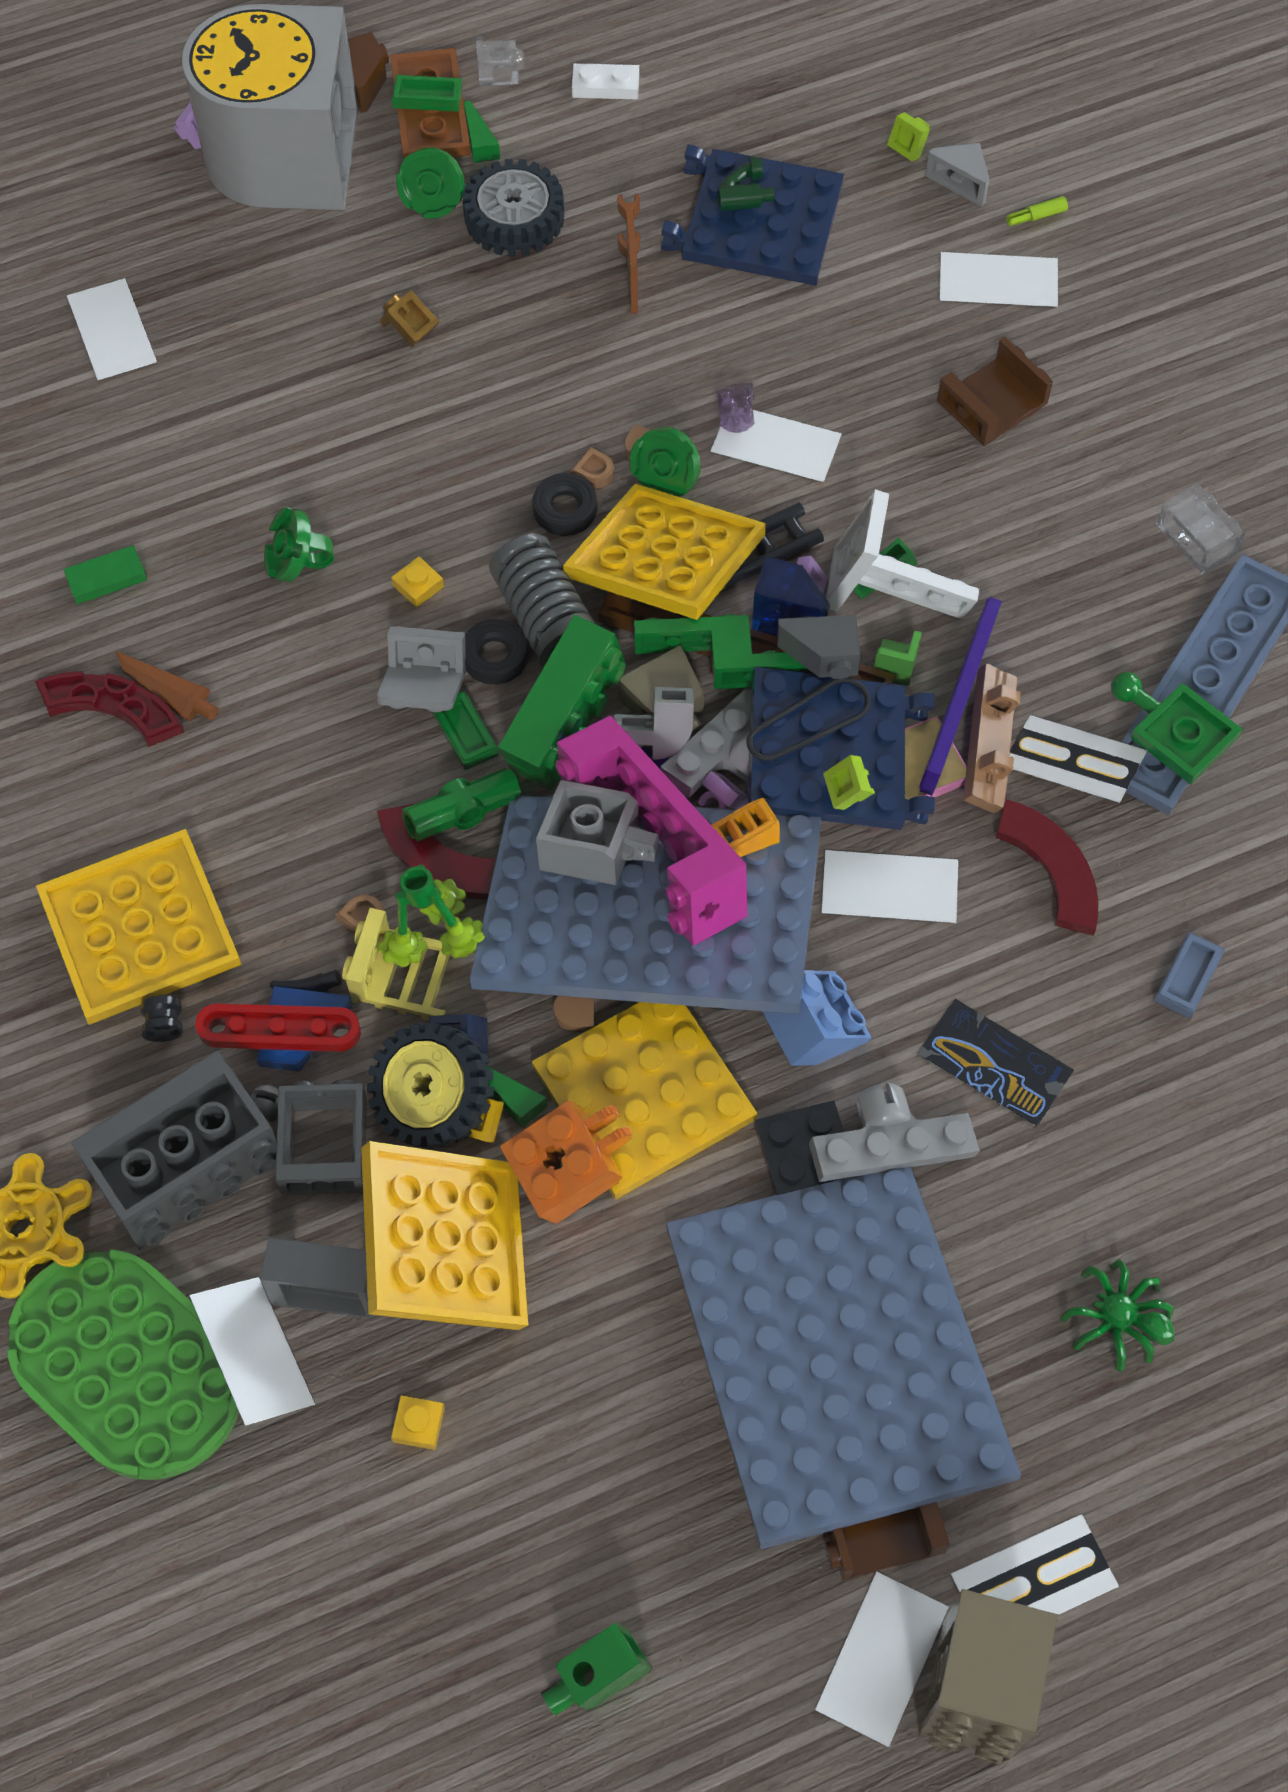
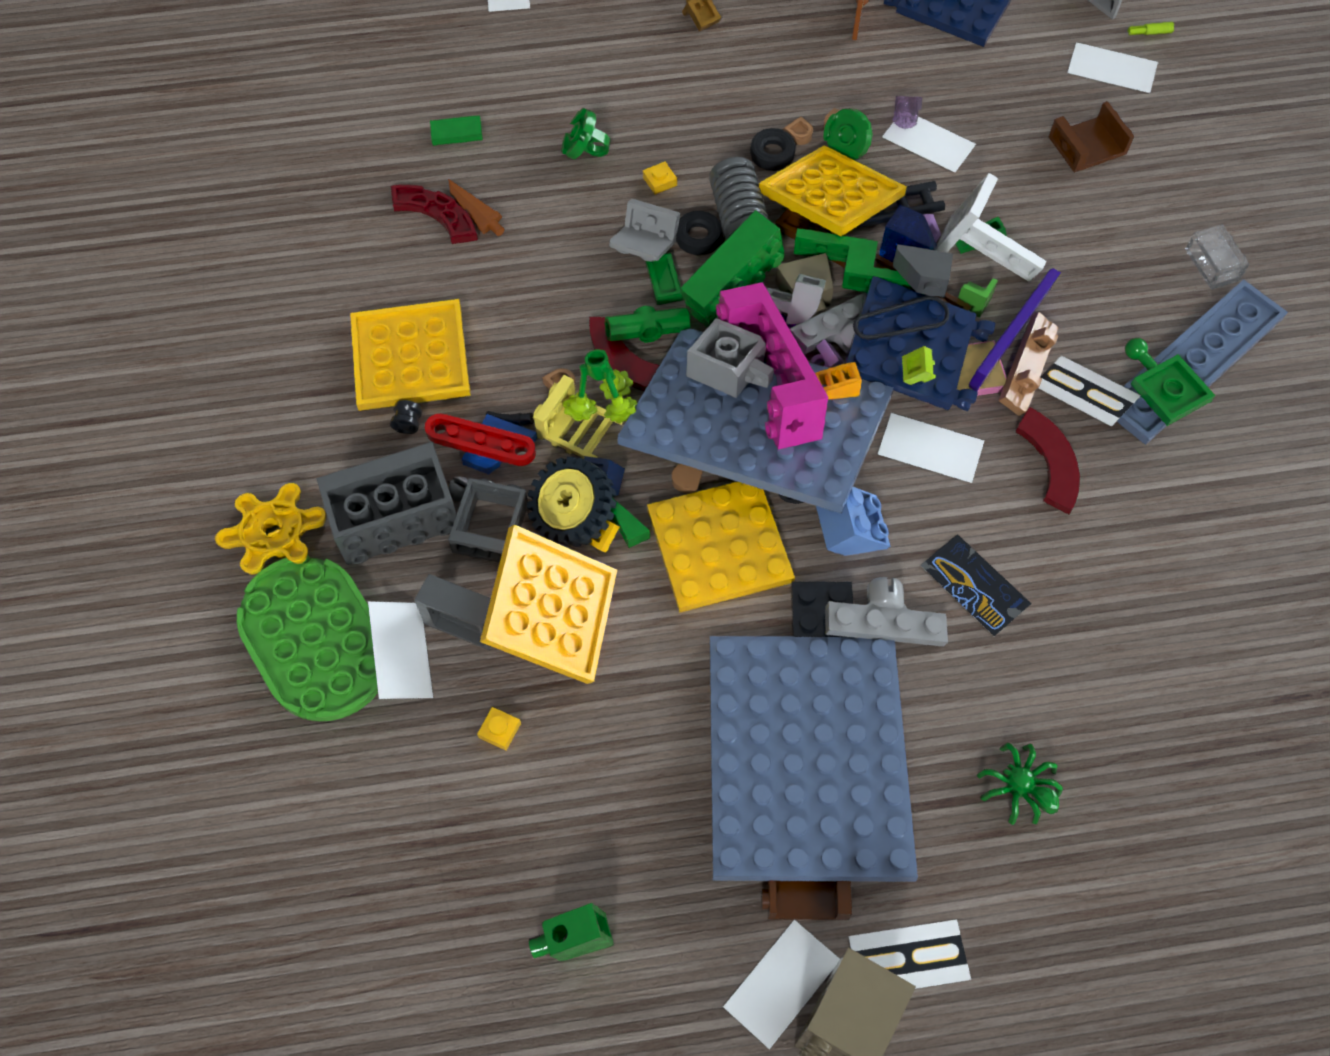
camera: 15 degrees right, 0 degrees up
(573, 1140) = (649, 574): orange hinge -> none
(1189, 975) = (1133, 558): sand blue tile -> none

